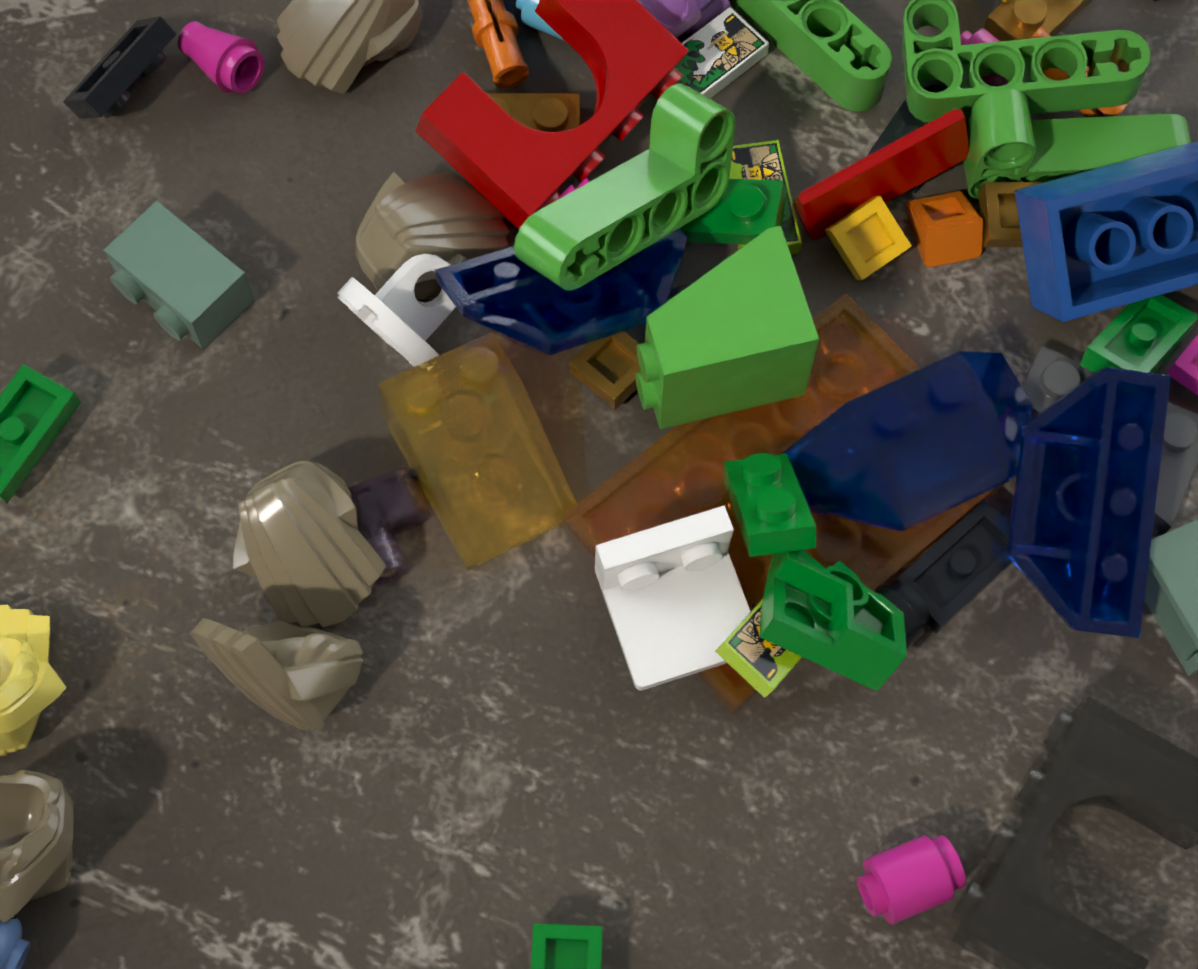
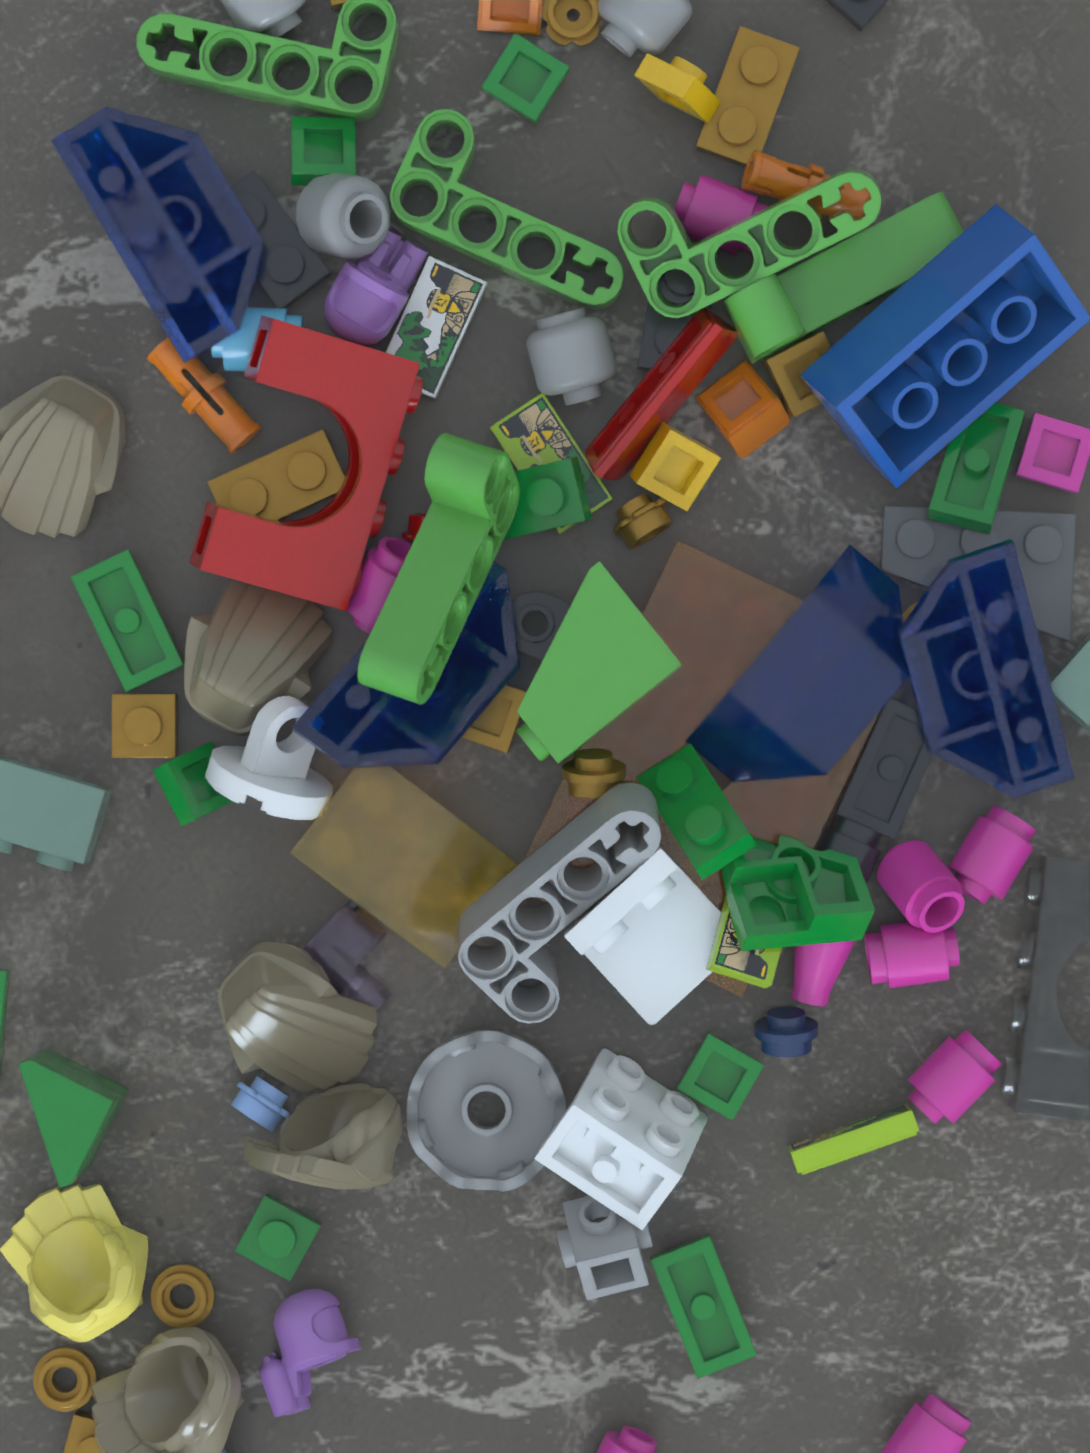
camera: 25 degrees left, 20 degrees up
(54, 532) = (71, 1109): none -> green slope
(64, 738) = (173, 1313): none -> pearl gold plate
(162, 853) = (308, 1336): none -> medium lavender piece
(186, 745) = (278, 1237): none -> green plate
(236, 607) = (261, 1103): none -> light blue plate
(309, 257) = (144, 725): none -> pearl gold plate
(323, 317) = (187, 787): none -> green plate
(339, 167) = (128, 620): none -> green plate
(434, 660) = (439, 1116): none -> light grey plate
(496, 882) = (603, 1248): none -> light grey brick
(558, 783) = (624, 1138): none -> white bracket
(613, 521) = (568, 893): none -> light grey beam
(681, 776) = (720, 1076): none -> green plate
(686, 438) = (592, 773): none -> pearl gold plate
(763, 761) = (786, 1032): none -> dark blue plate
(787, 894) = (853, 1139): none -> lime tile
(816, 116) = (571, 355): none -> light grey head
(821, 271) = (642, 520): none -> pearl gold plate
(823, 708) = (818, 970): none -> dark pink cone
(916, 739) = (910, 955): none -> dark pink brick
(952, 676) = (921, 886): none -> dark pink brick
(1028, 683) = (992, 854): none -> dark pink brick

